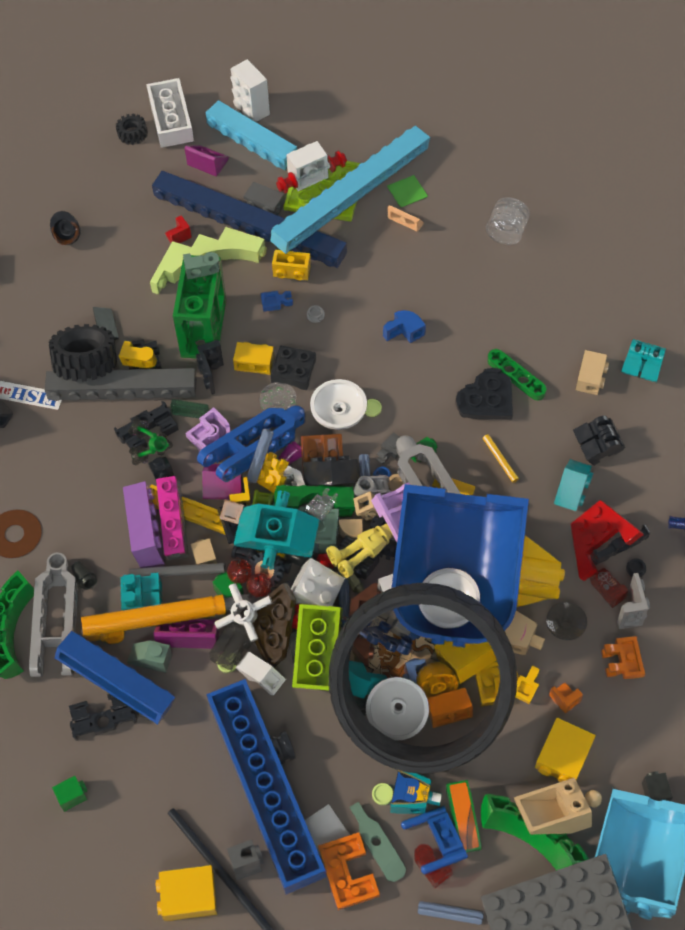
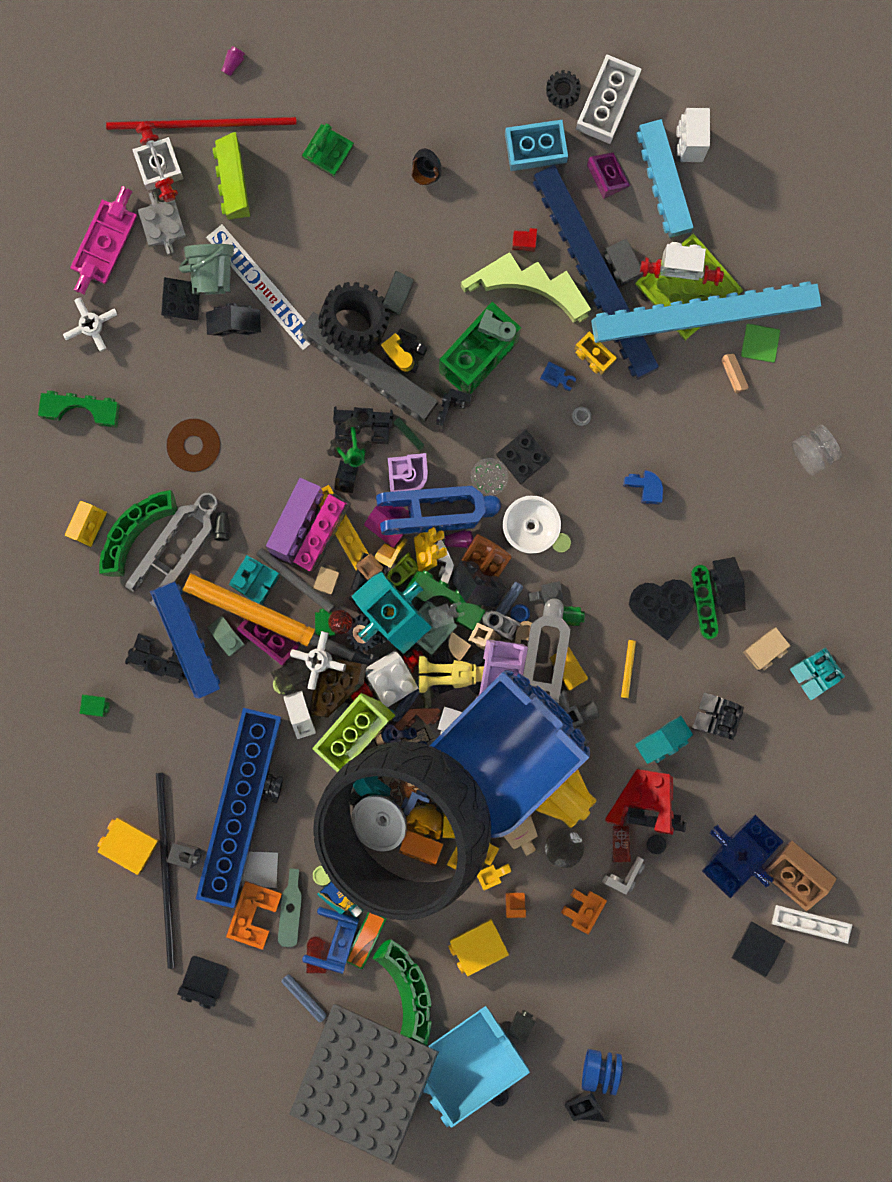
camera: 30 degrees right, 25 degrees up
(138, 168) = (536, 145): none -> medium azure brick
(253, 358) = (497, 423): yellow brick -> none
(258, 585) = (342, 646): clear red piece -> none
(259, 455) = (427, 532): sand blue axle -> none
(458, 580) = (495, 762): white dish -> none
(527, 345) = (728, 585): none -> black brick
(554, 808) = (430, 985): tan slope -> none

